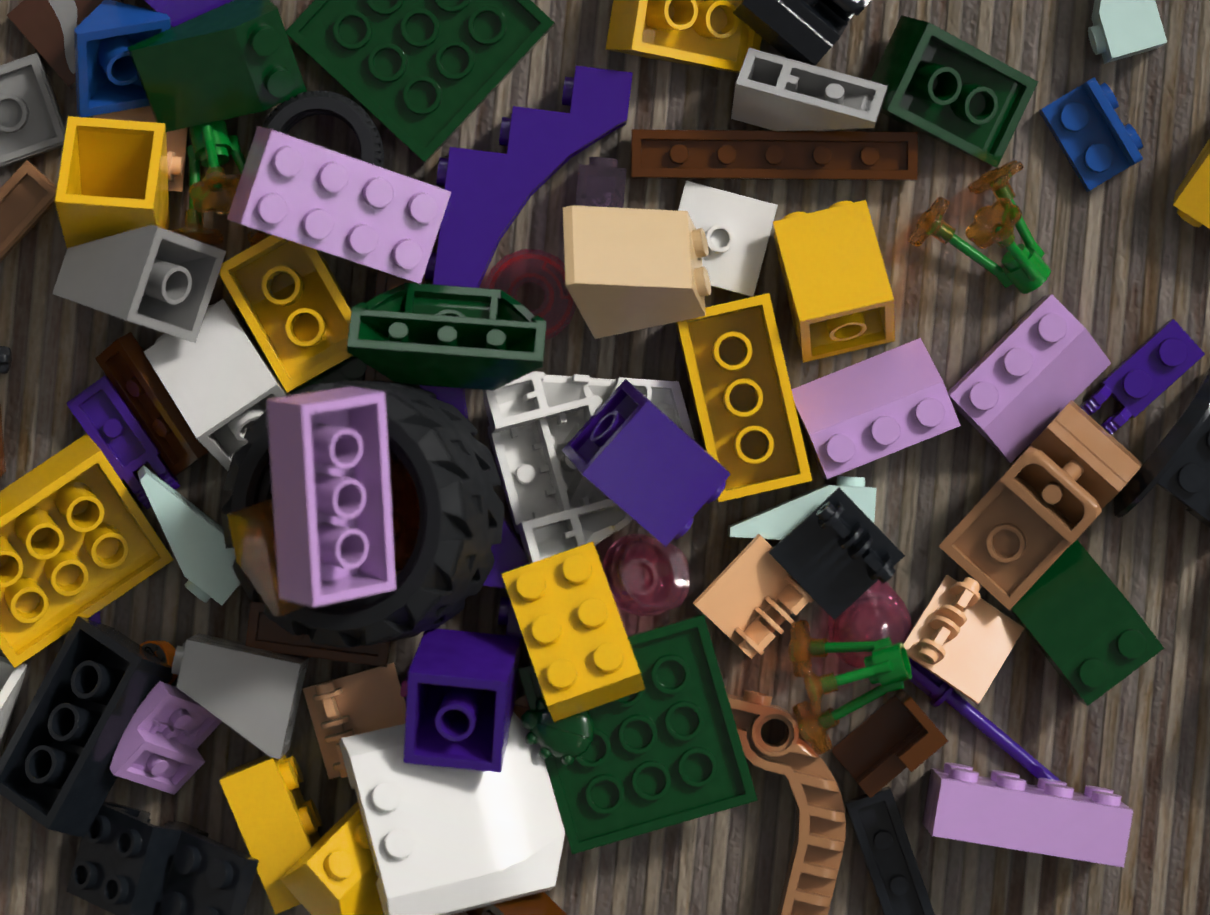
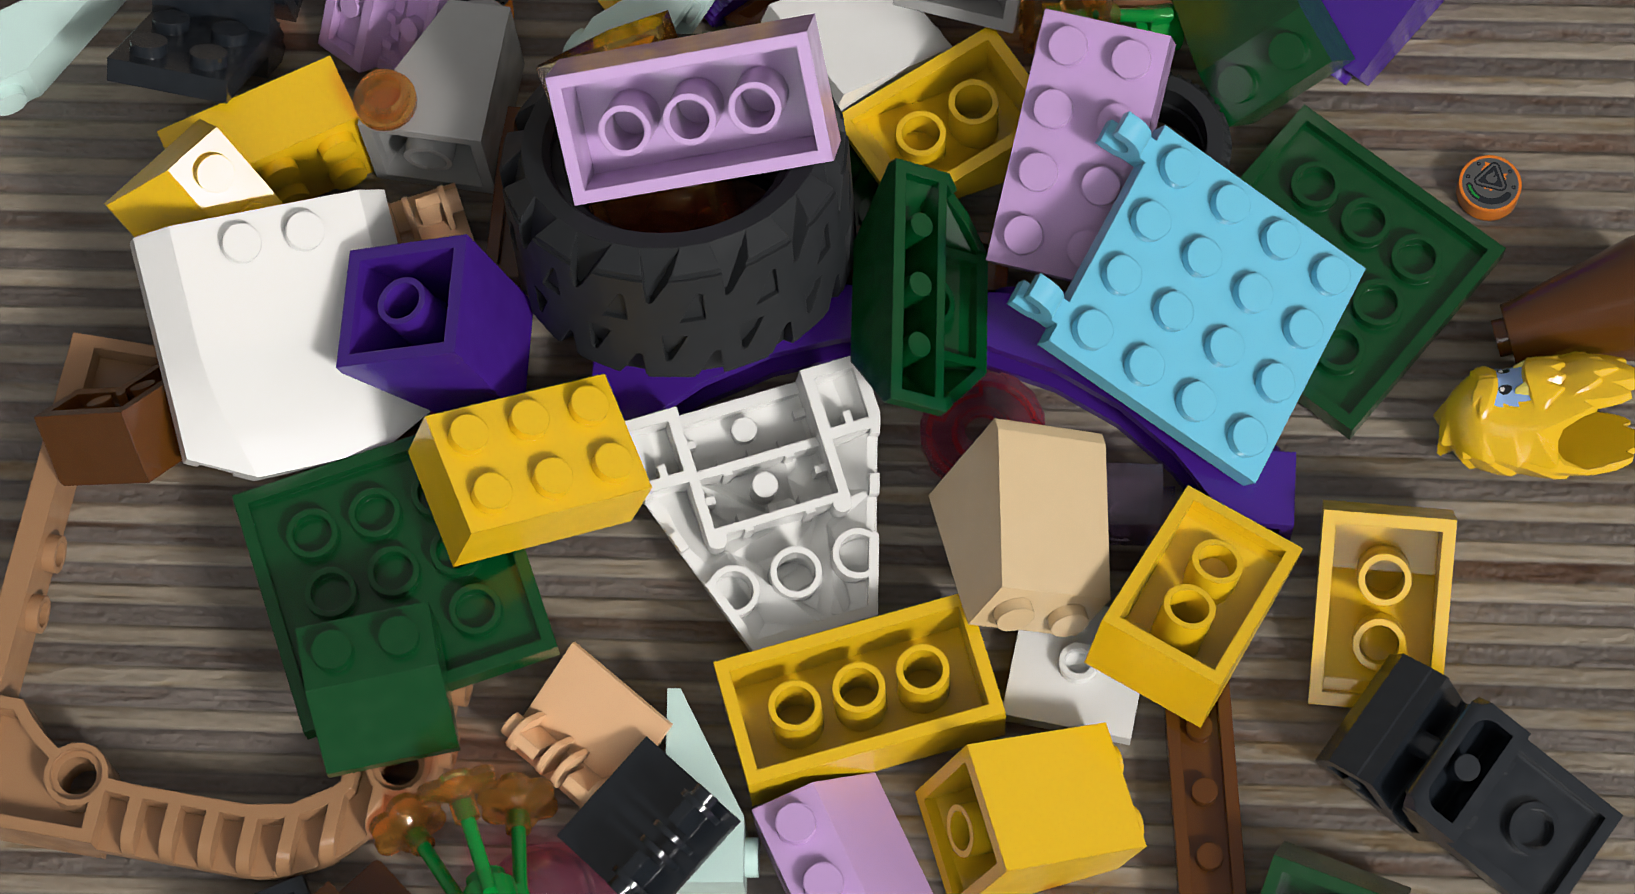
camera: 90 degrees right, 20 degrees down
(266, 736) = (385, 100): none -> clear orange plate
(470, 127) = (1196, 301): none -> medium azure plate
(562, 738) = (387, 468): dark green piece -> none
(646, 464) = (757, 554): dark purple slope -> none
(646, 575) = (612, 591): clear pink hat -> none
(692, 150) = (1192, 606): none -> yellow slope
(738, 744) = (378, 688): none -> dark green slope
(802, 96) = (1283, 745): light grey slope -> none

